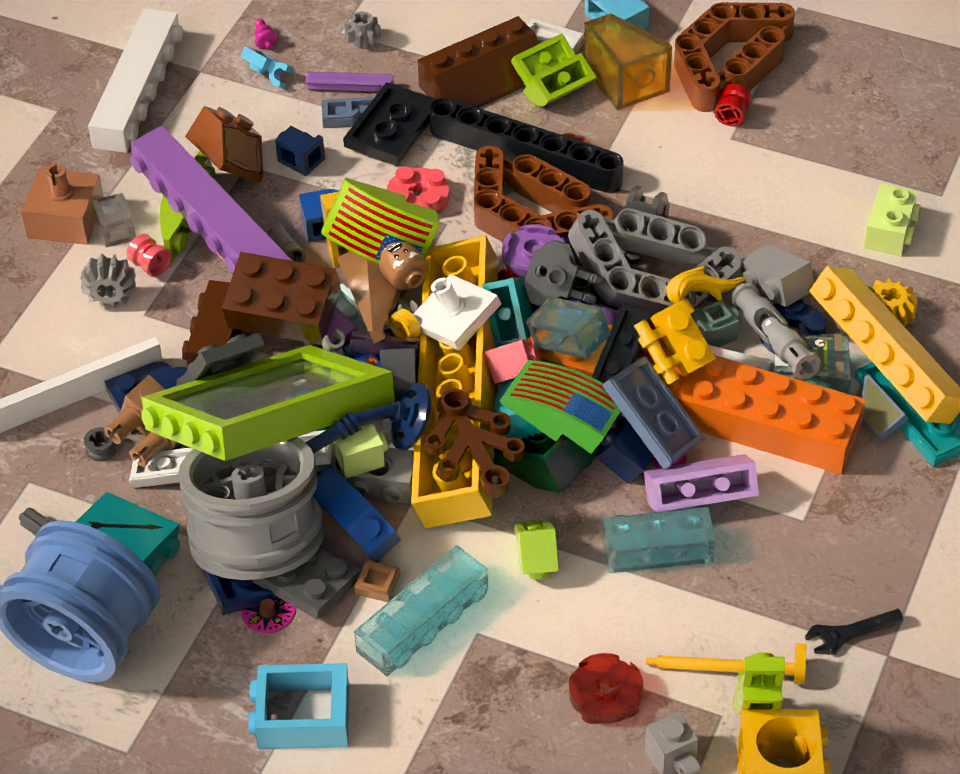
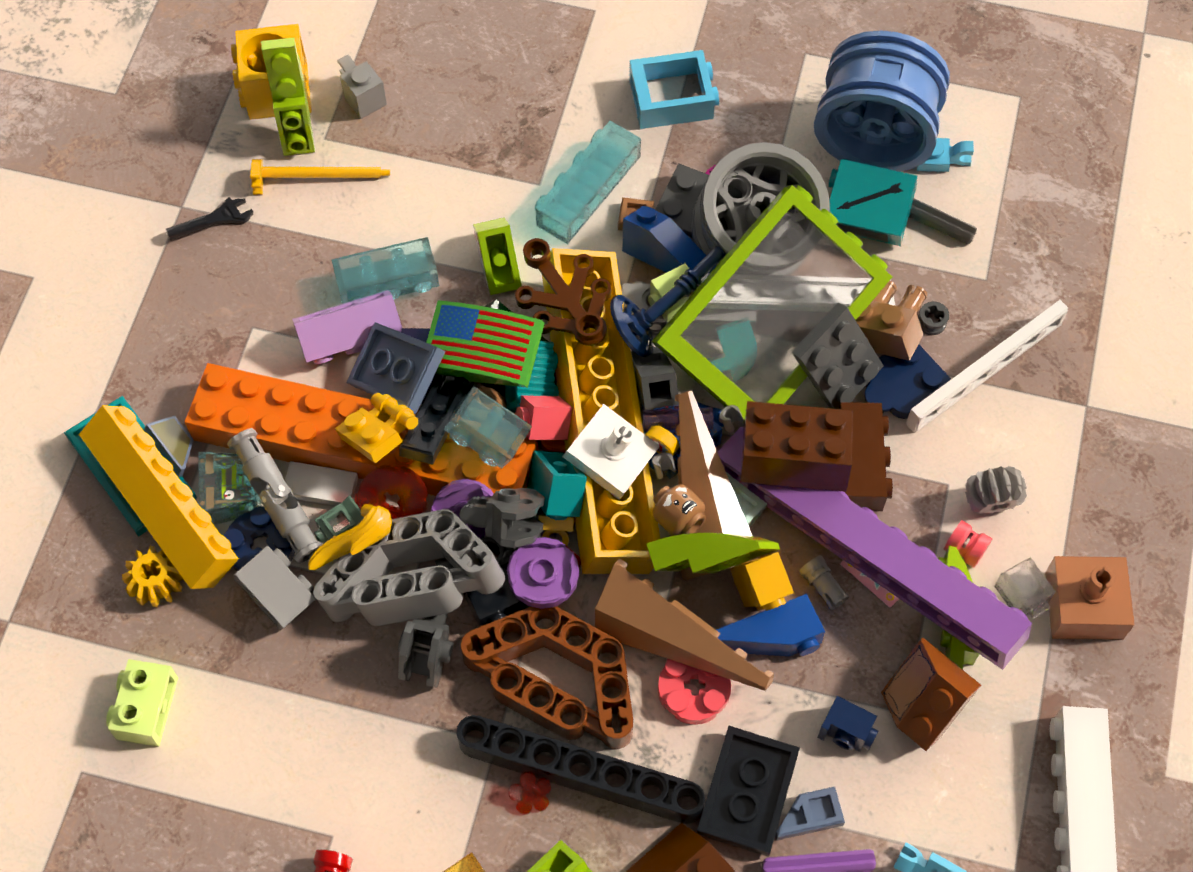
camera: 170 degrees right, 15 degrees up
(453, 219) = (668, 629): none -> medium nougat wedge
(605, 707) = (421, 153): clear red plate -> none

